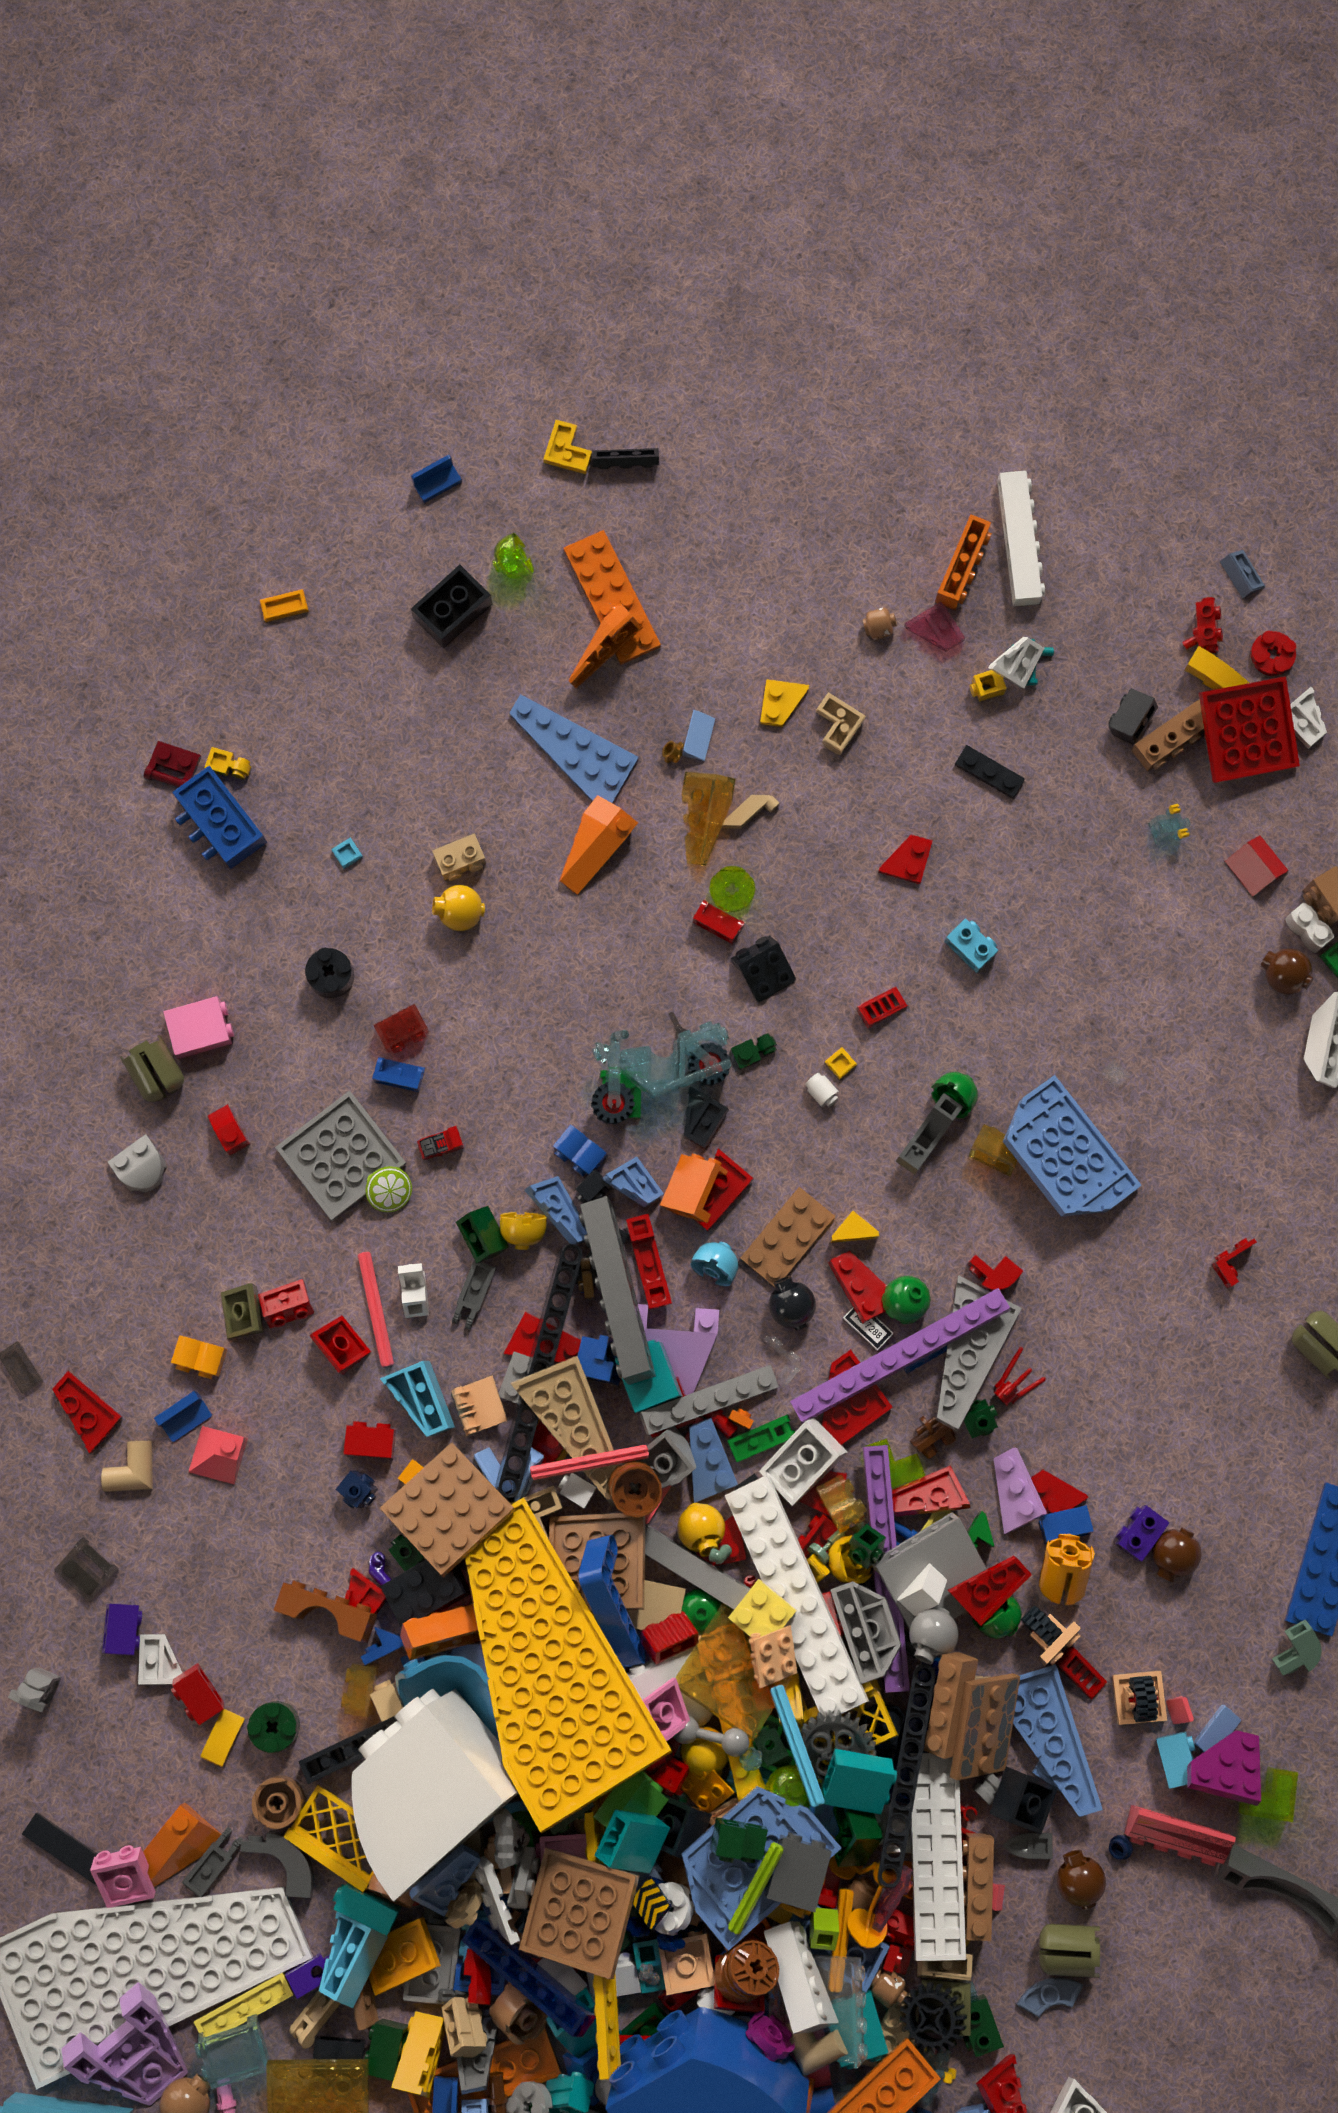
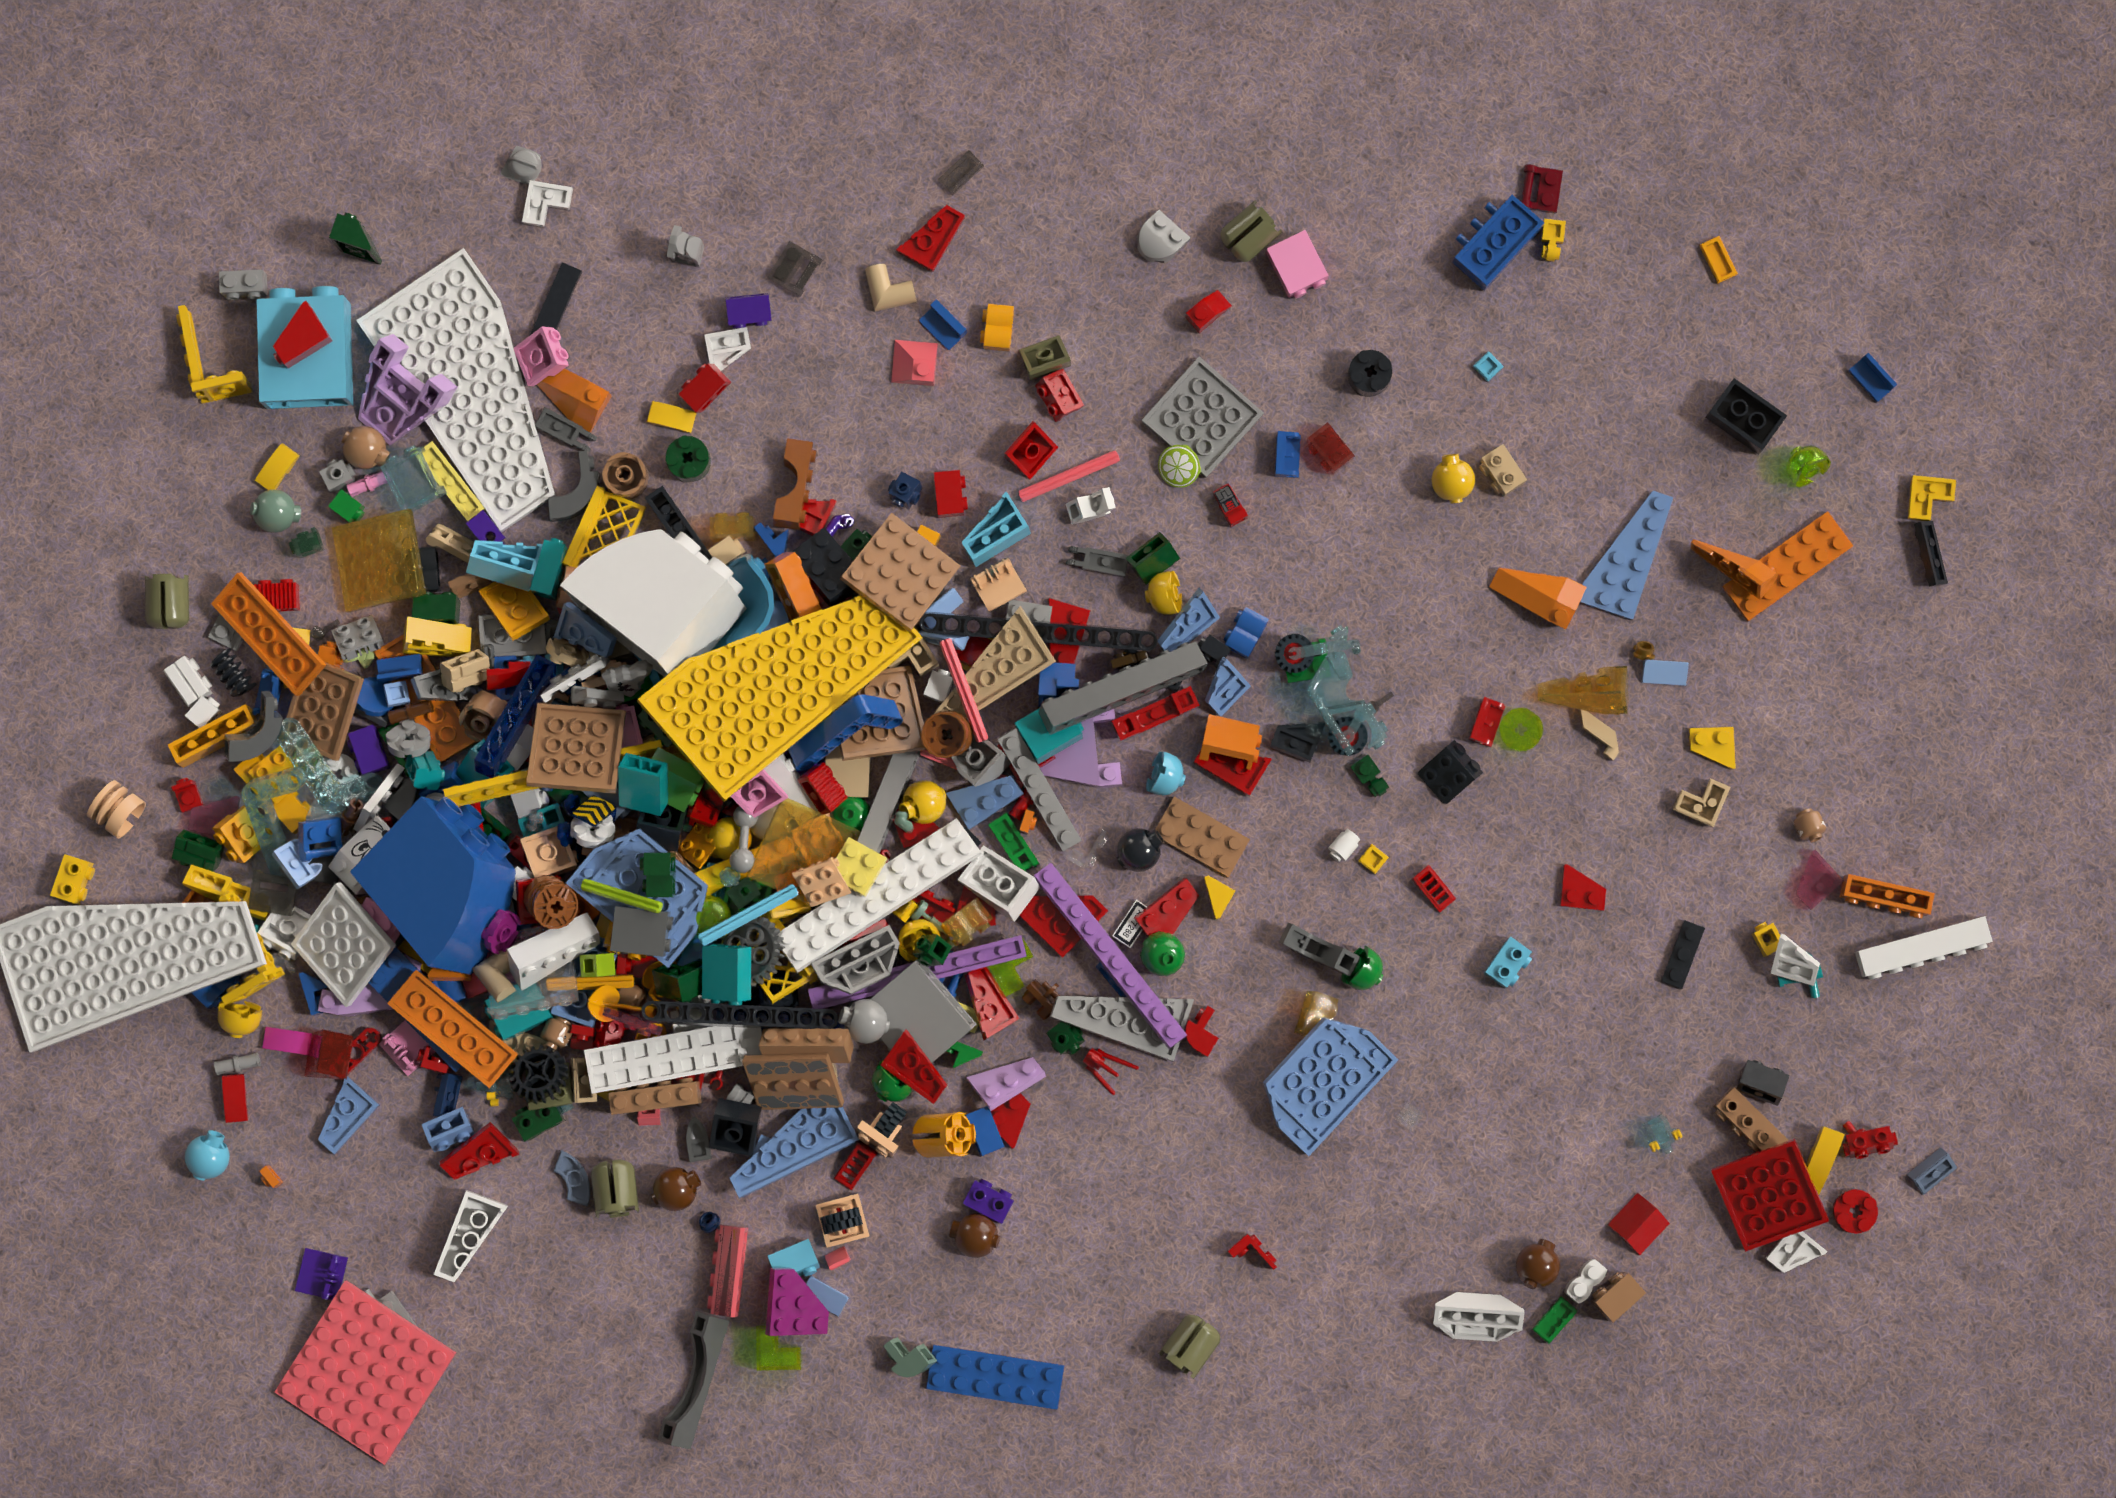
camera: 85 degrees right, 5 degrees up
(924, 1591) = (901, 1007): white slope -> none

